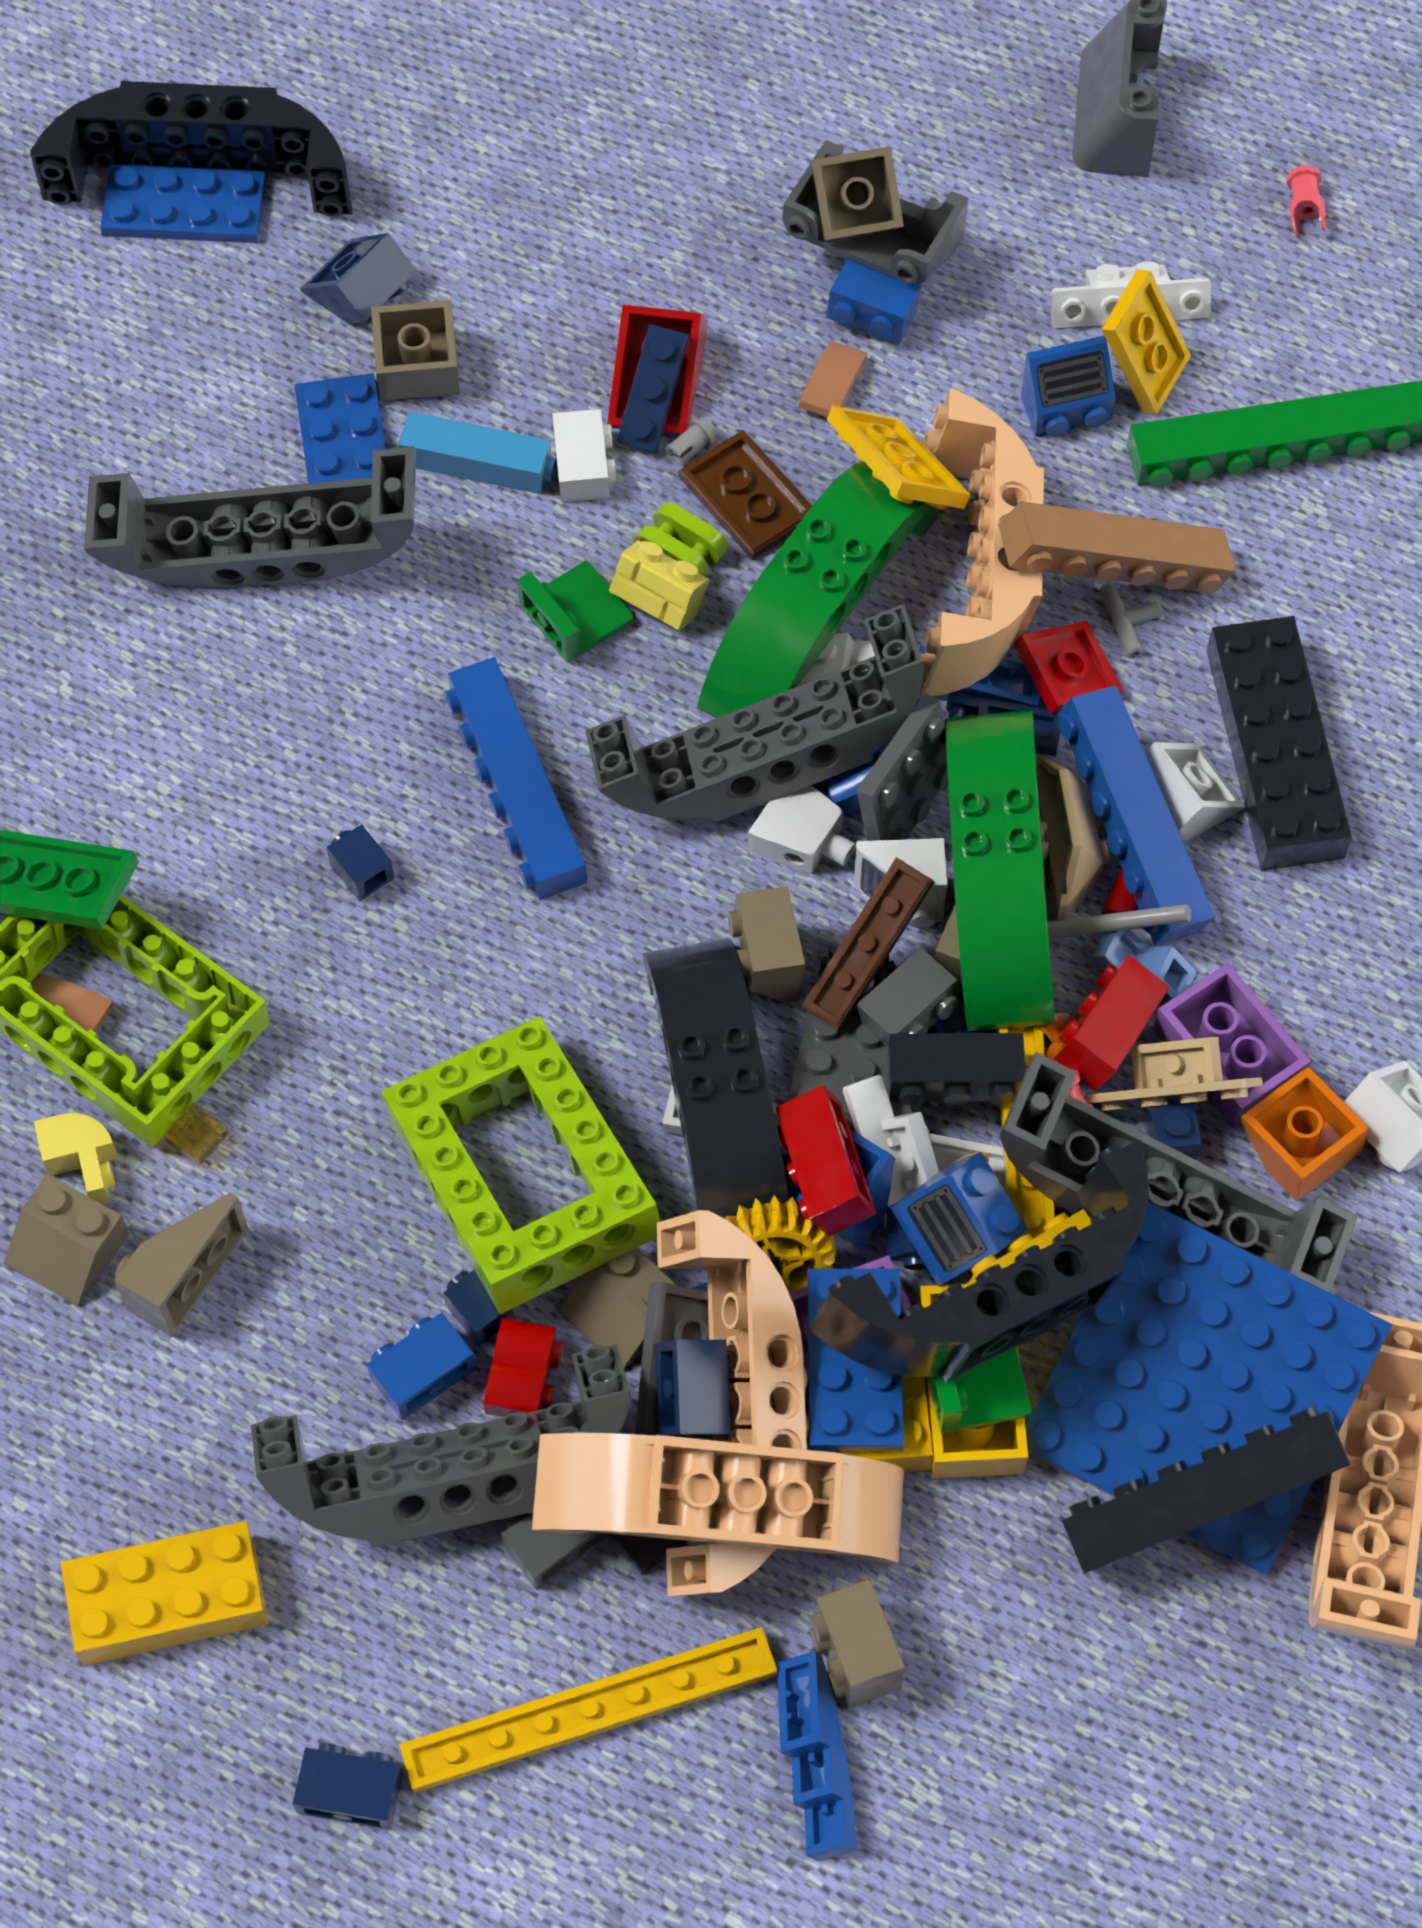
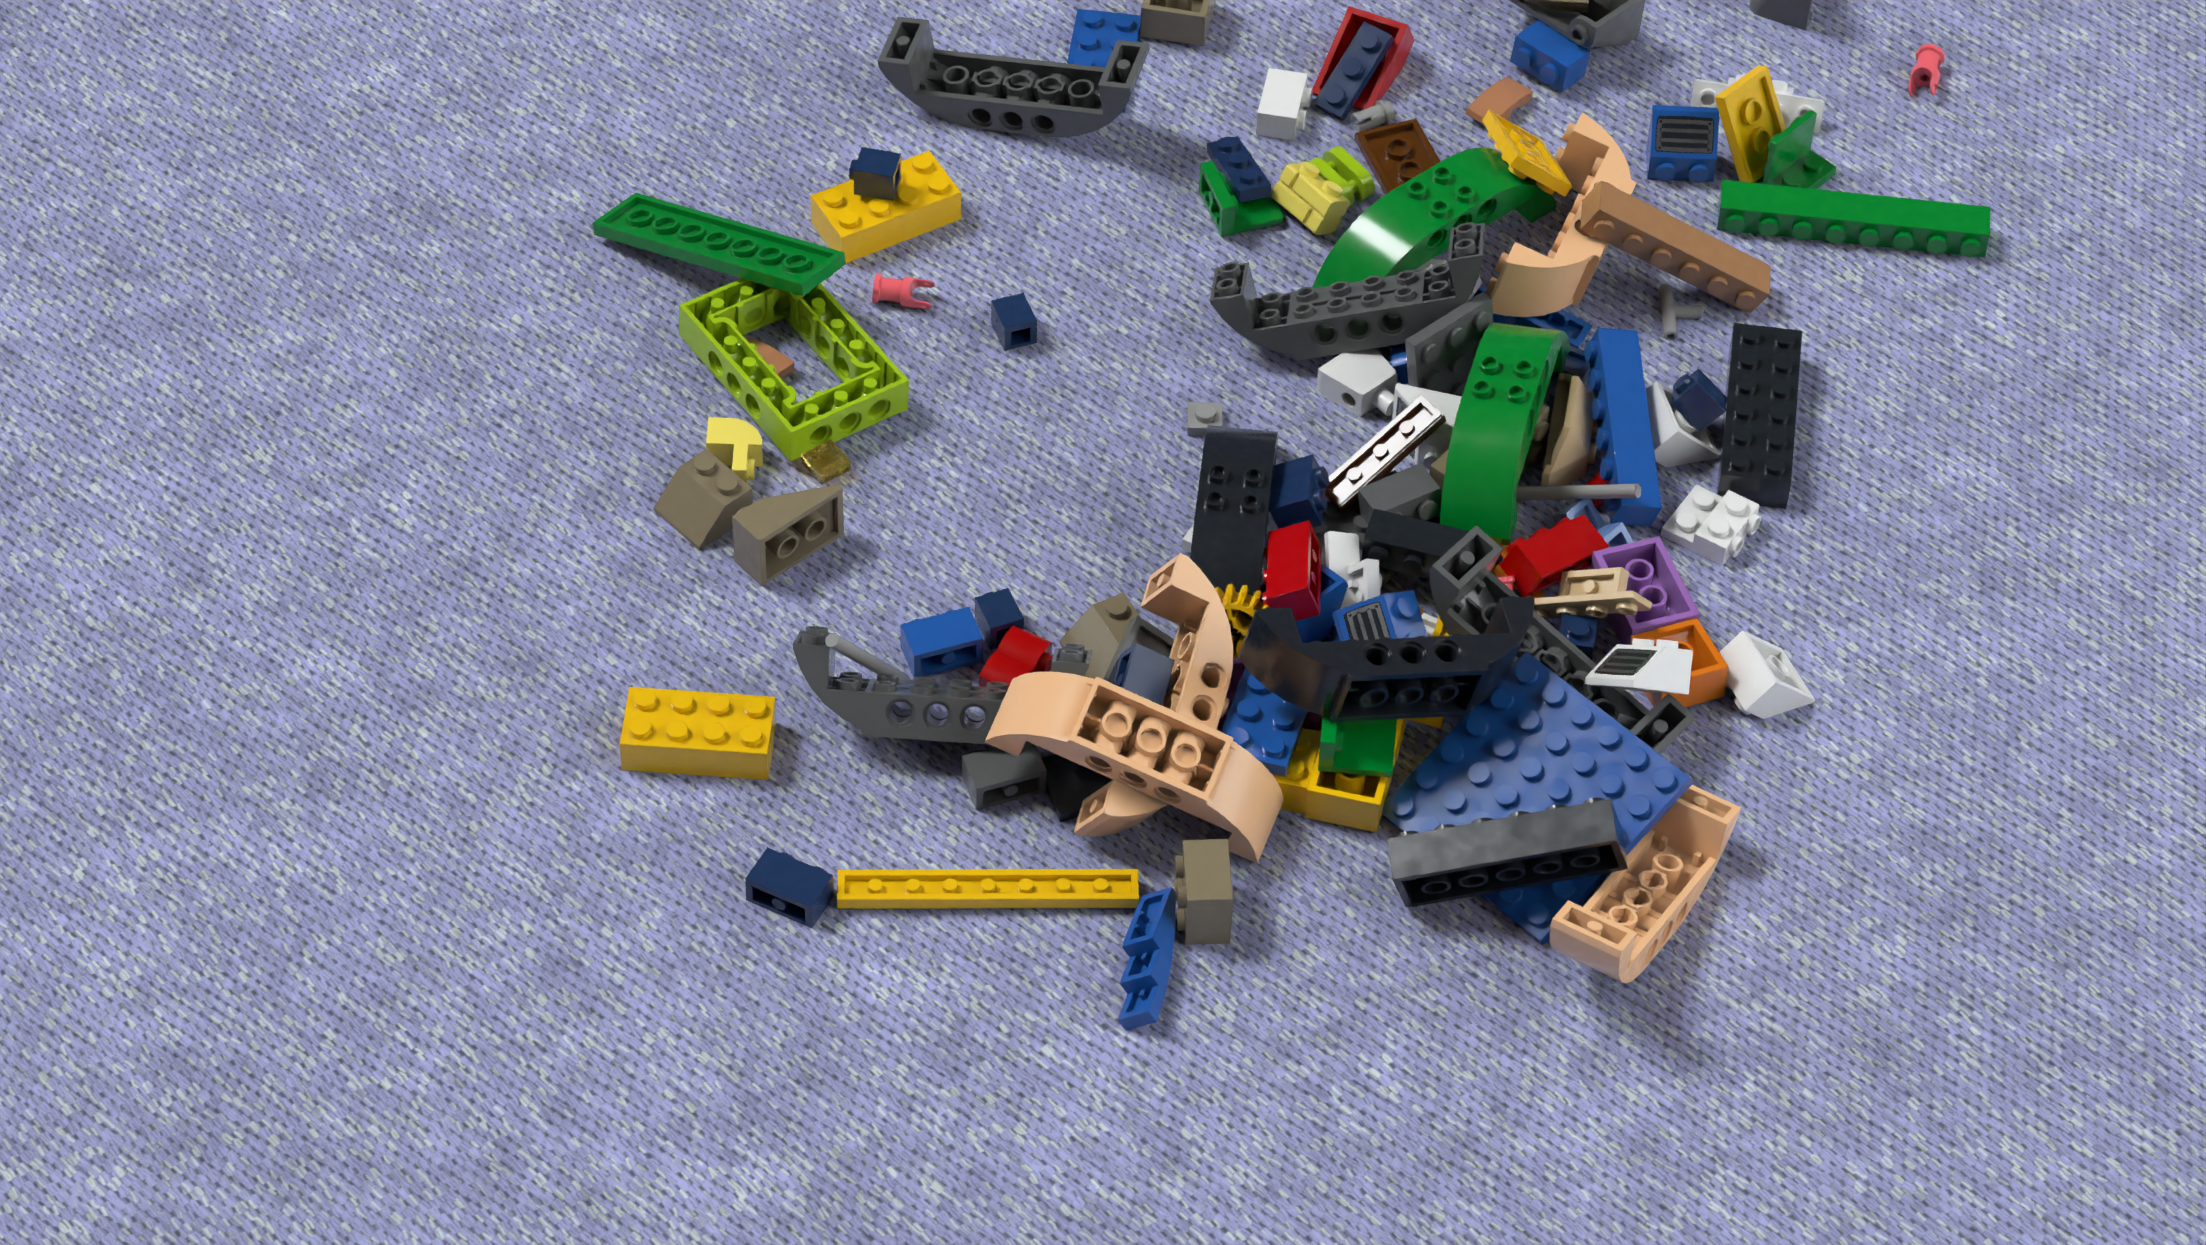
camera: 15 degrees right, 15 degrees down
(133, 713) = (876, 173): none -> dark blue brick
(153, 741) = (870, 224): none -> yellow brick
(205, 856) = (899, 291): none -> coral piece
(345, 1442) = (863, 657): none -> light grey bar
(479, 453) = (1201, 83): dark azure brick -> none
(516, 778) = (1153, 298): blue brick -> none
(560, 564) = (1239, 168): none -> dark blue plate
(562, 1244) = (1072, 578): lime brick -> none
(630, 933) = (1201, 415): none -> light grey plate
(768, 943) = (1305, 426): dark tan slope -> none
(790, 1033) = (1298, 492): none -> dark blue brick
(1065, 663) = (1611, 312): red plate -> none
(1203, 374) = (1791, 158): none -> green bracket
(1207, 749) = (1698, 399): none -> dark blue brick
(1270, 909) = (1712, 523): none -> white plate
(1281, 1176) = (1645, 667): none -> white slope

